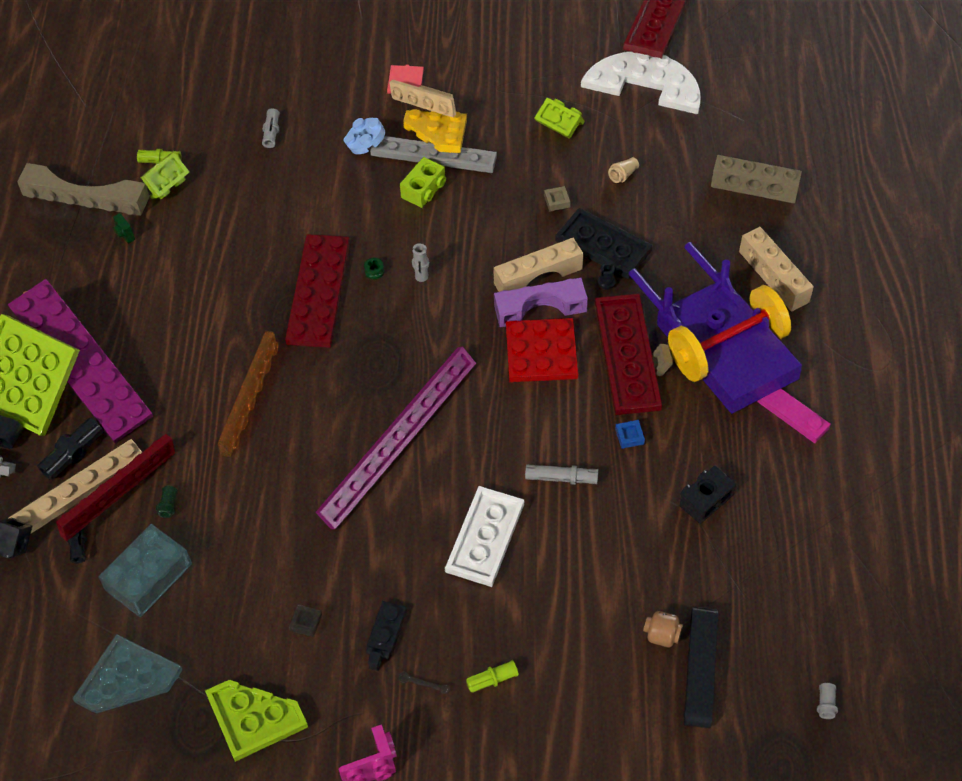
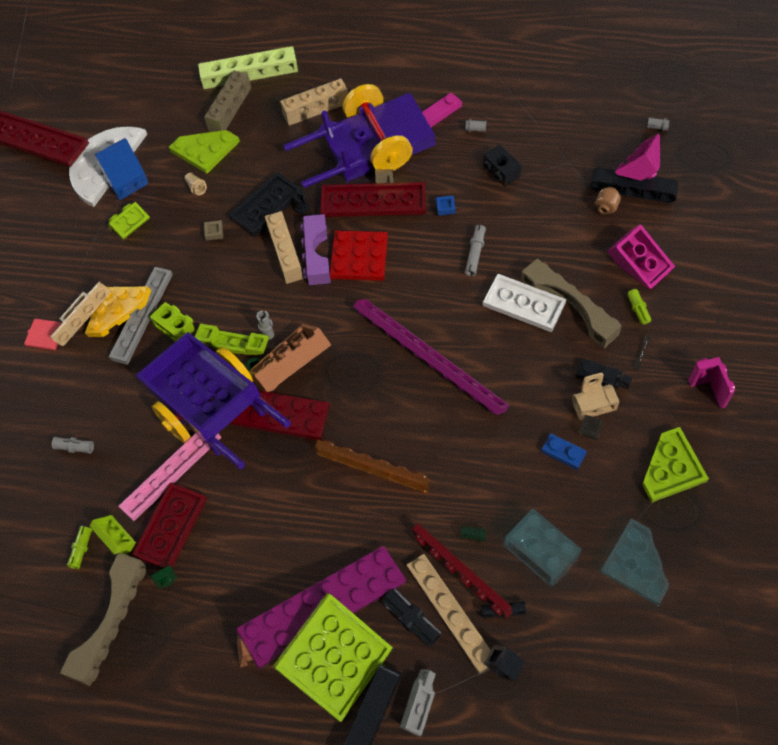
camera: 80 degrees left, 5 degrees up
(179, 224) = (170, 526): none -> dark red plate
(242, 214) = (168, 473): none -> bright pink plate
(274, 593) = (564, 451): none -> blue plate
(319, 210) = (202, 391): none -> dark purple piece
(343, 621) = (595, 398): none -> tan piece
(364, 135) = (117, 362): light blue plate -> none
(380, 291) = (289, 357): none -> nougat wedge
(406, 237) = (235, 343): none -> lime slope
(456, 624) = (600, 325): none -> dark tan arch
(571, 676) = (641, 257): none -> dark pink slope
(619, 91) = (121, 169): none -> blue slope
(682, 171) = (204, 149): none -> lime plate
(725, 666) = (643, 162): none -> dark pink wedge
(774, 454) = (475, 125): none -> light grey pin
(822, 192) = (256, 65): none -> yellowish green brick

